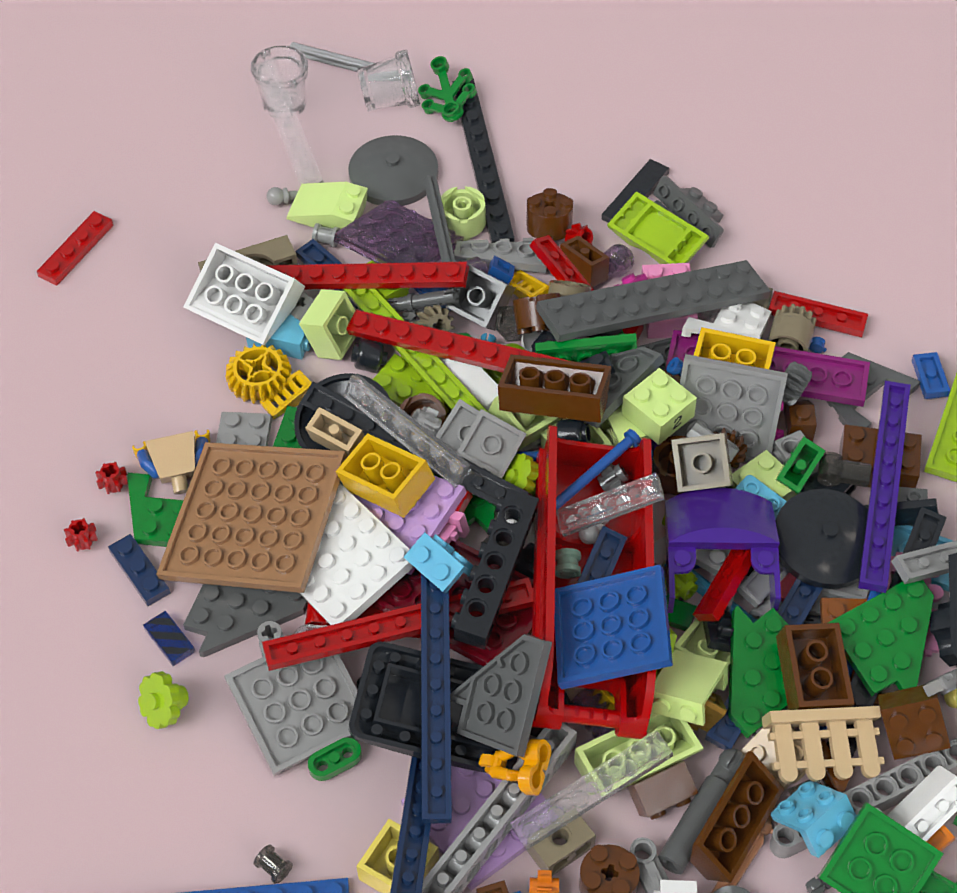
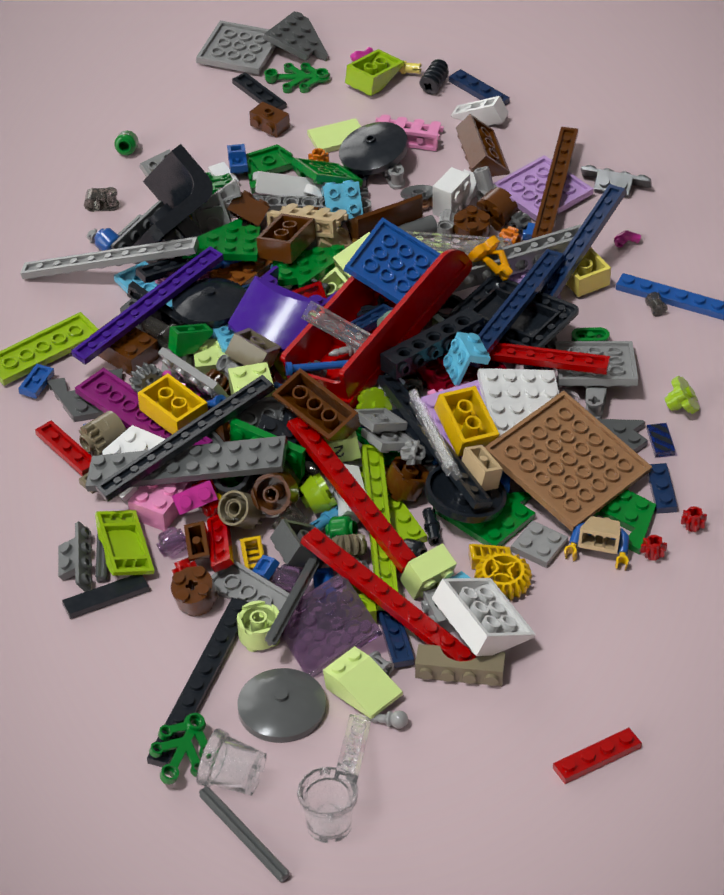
camera: 150 degrees left, 10 degrees down
(504, 696) = (482, 266): dark grey wing -> none
(667, 306) = (185, 438): none -> black plate

